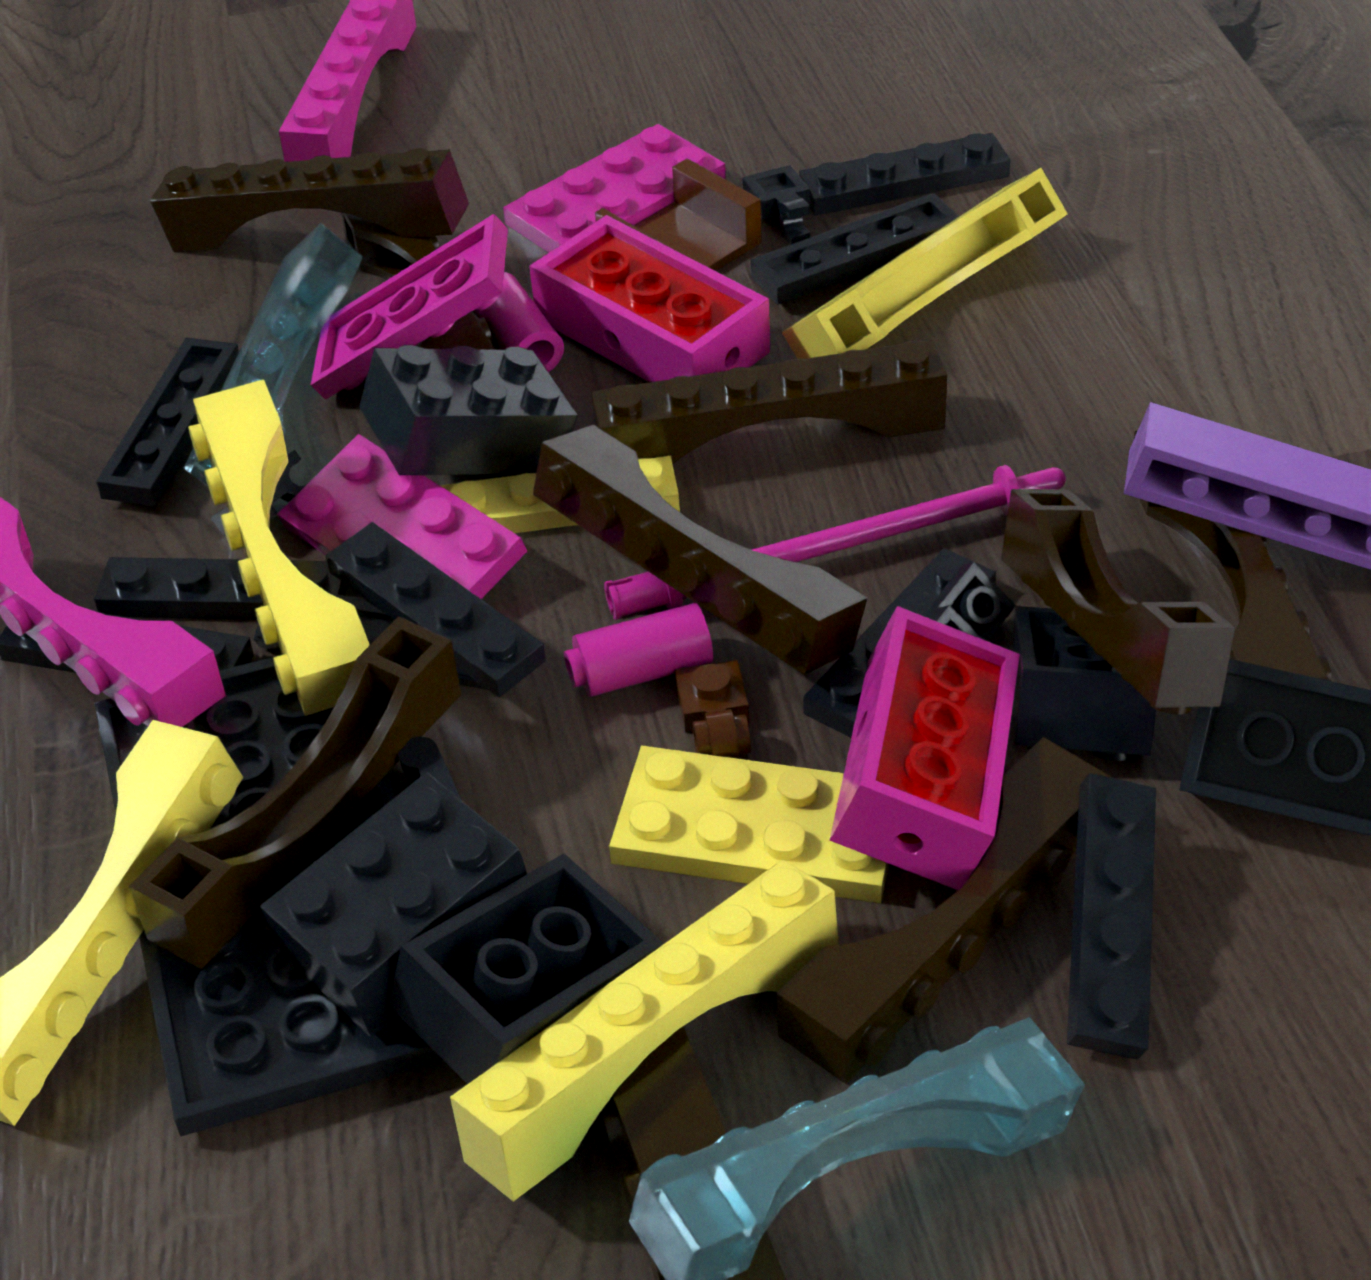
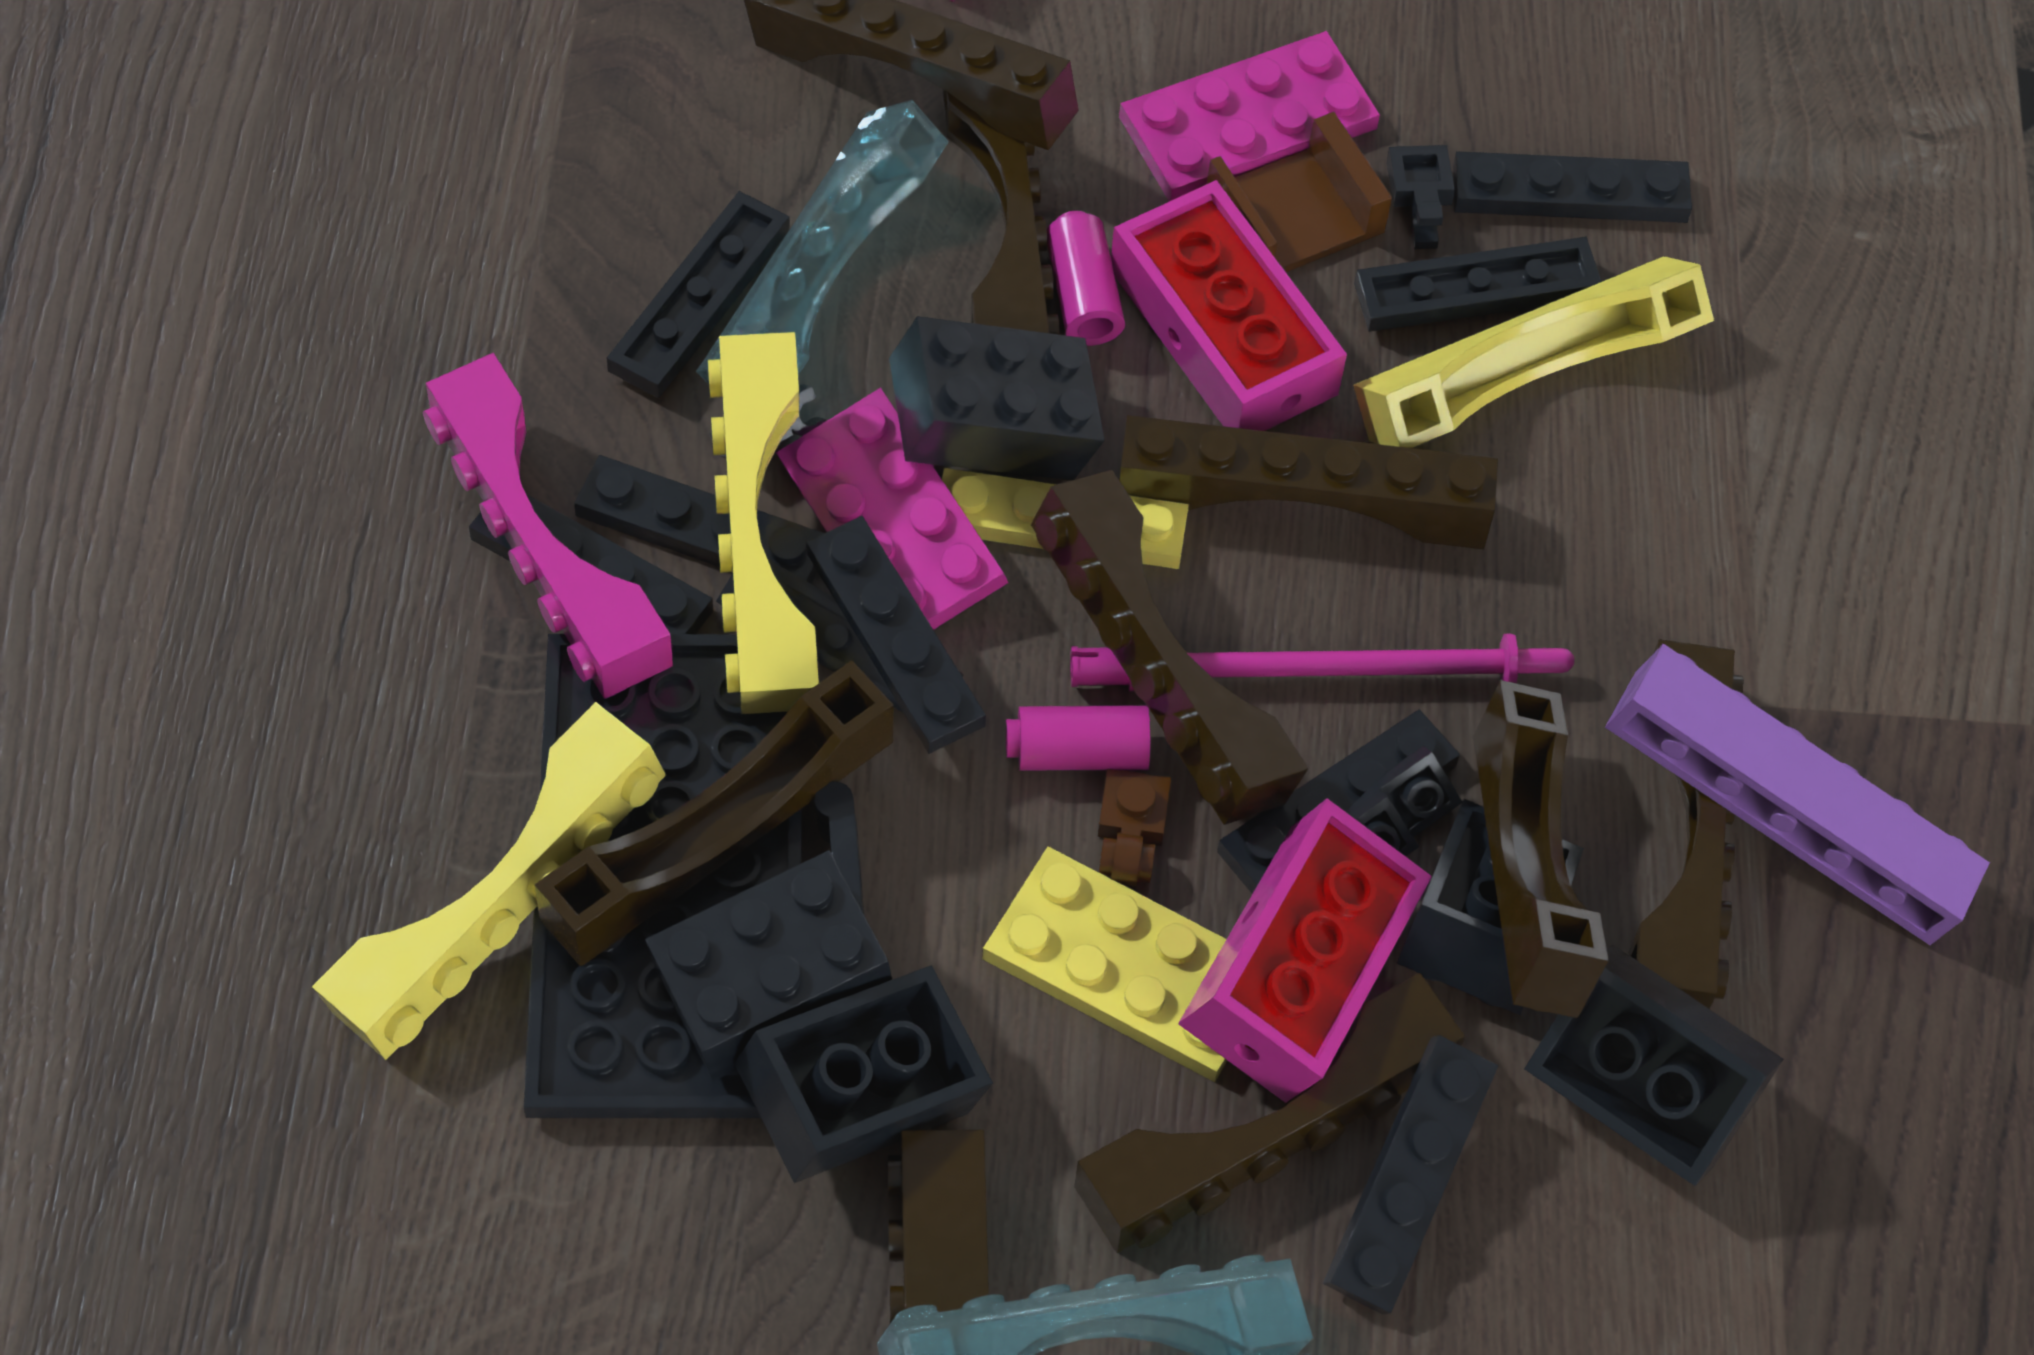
camera: 10 degrees right, 15 degrees up
(412, 305) = (977, 243): dark pink plate -> none
(543, 1097) = (851, 1195): light yellow arch -> none

